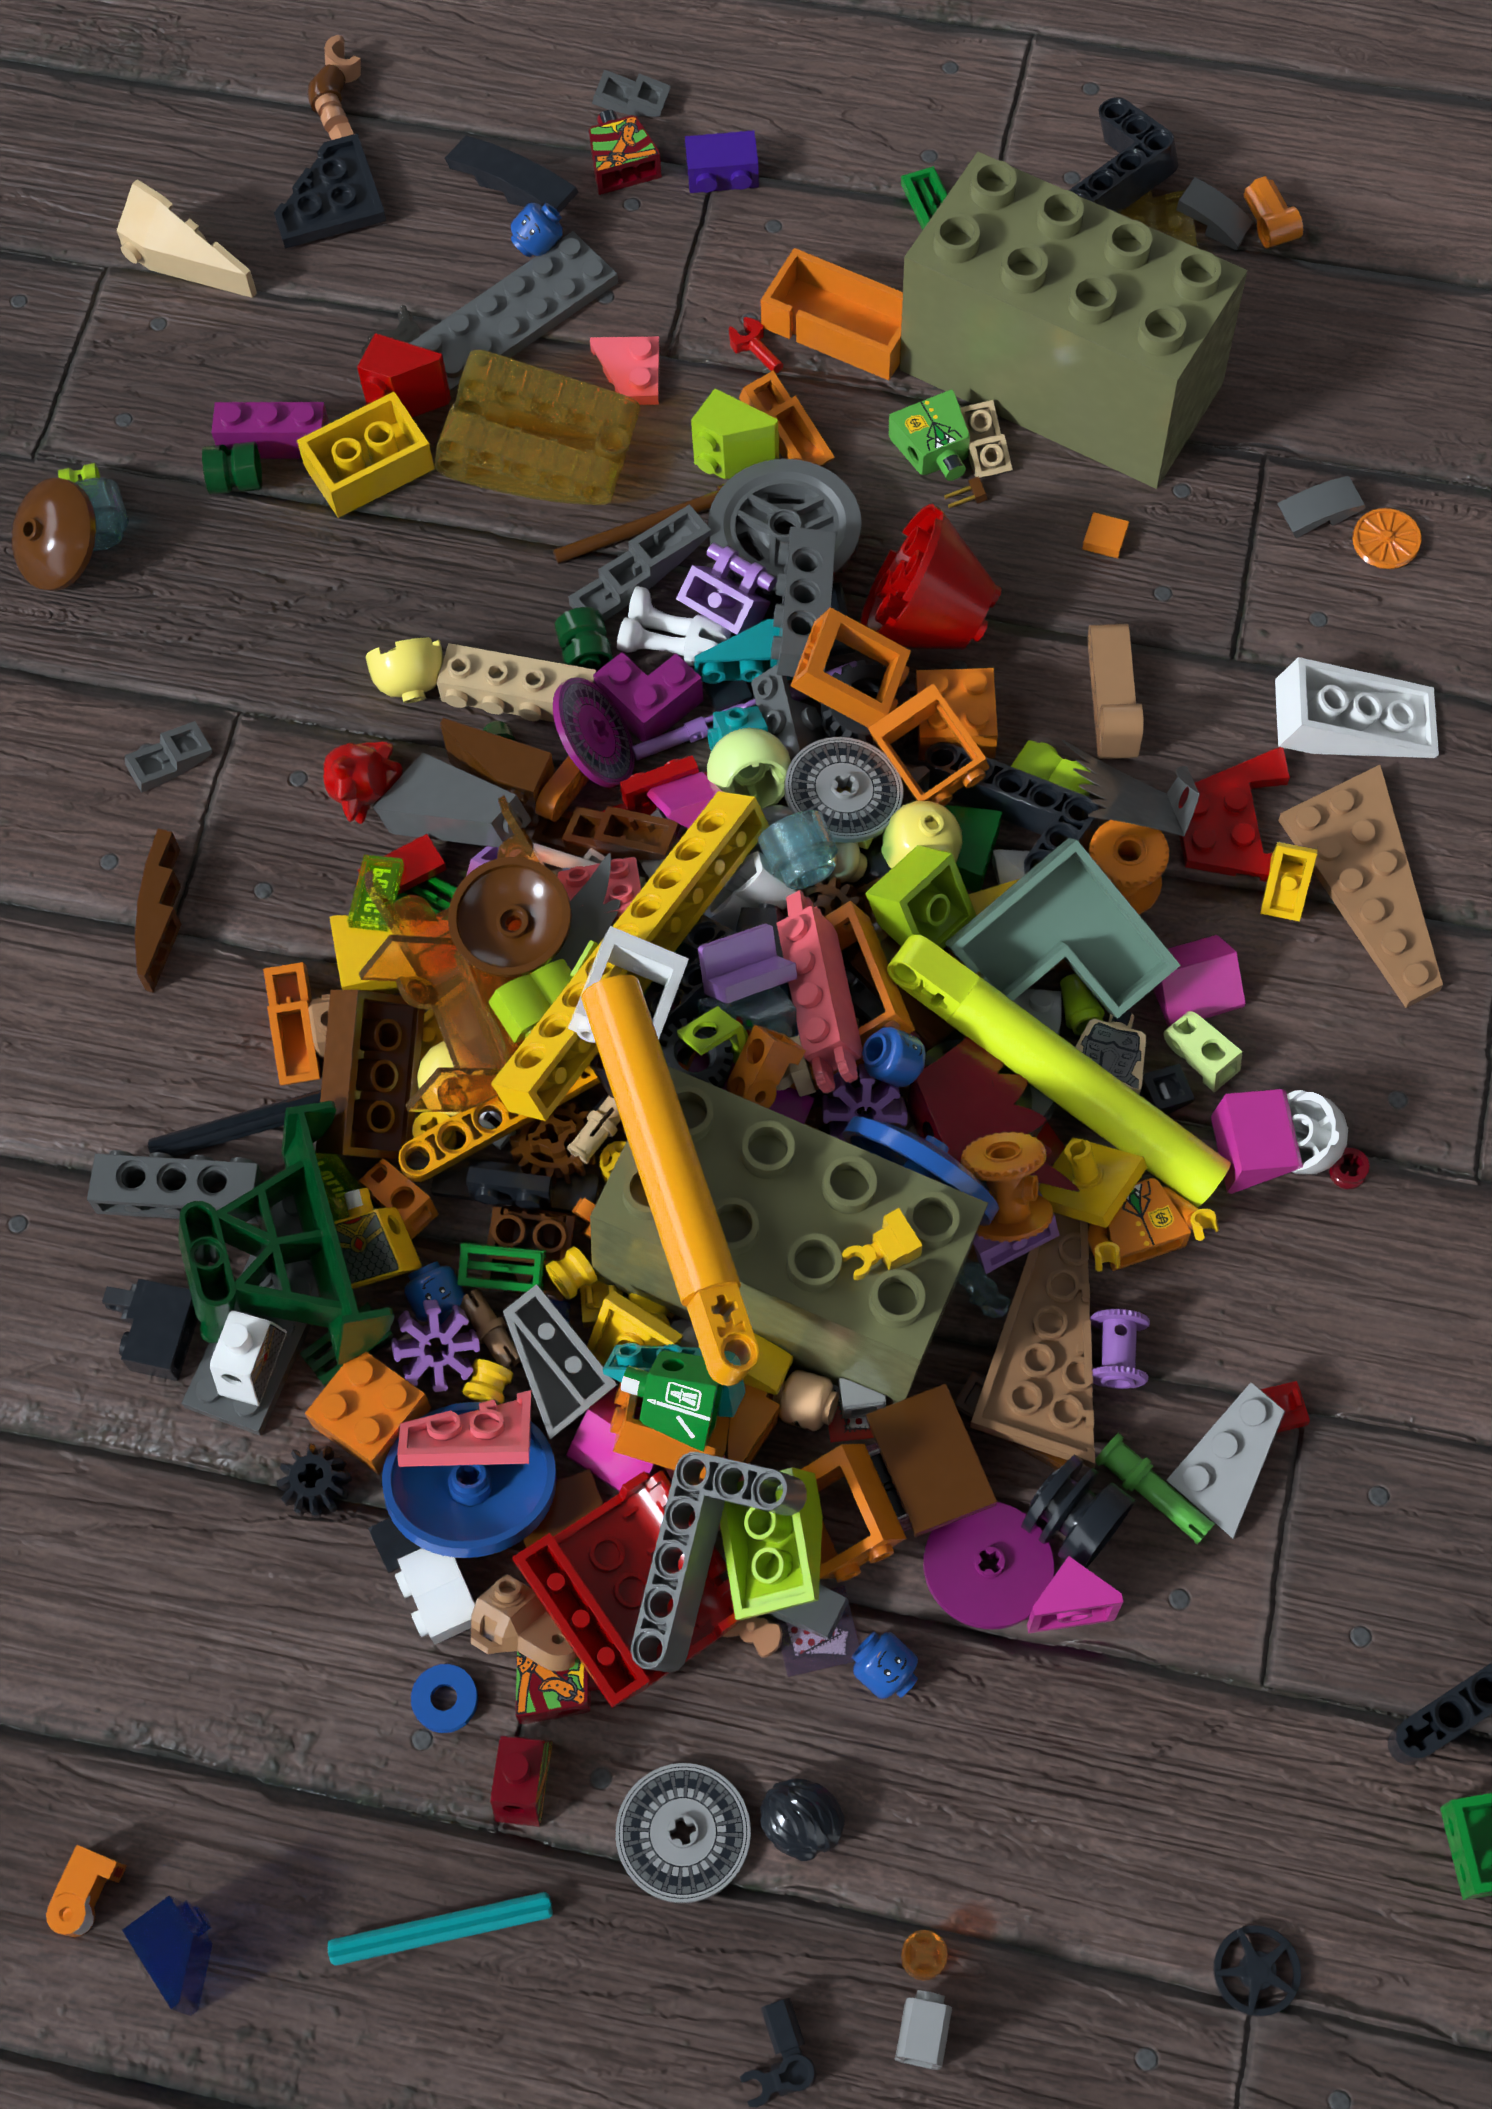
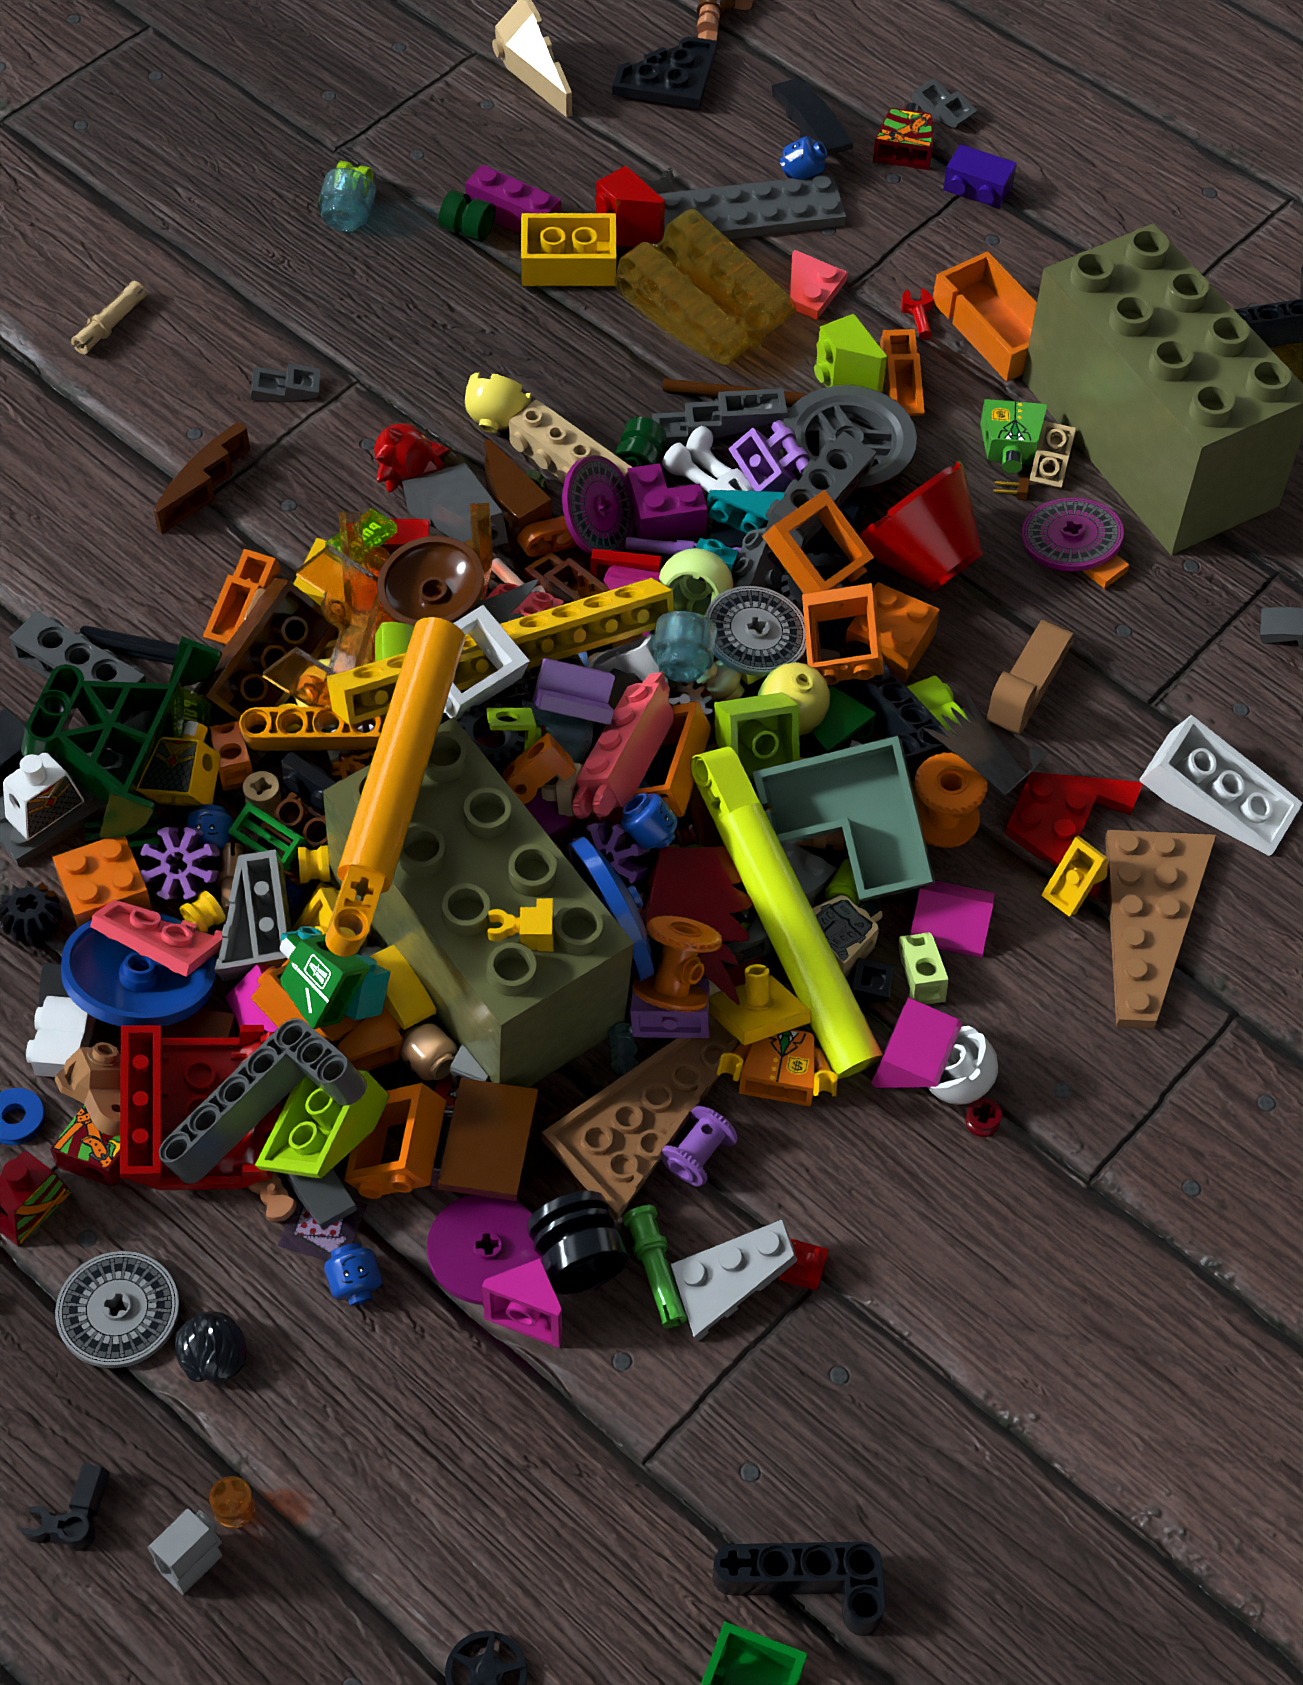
camera: 25 degrees right, 10 degrees down
(54, 534) = (306, 197): reddish brown dish -> none
(461, 1229) = (269, 785): none -> tan wheel
(1056, 540) = (1094, 540): none -> piece

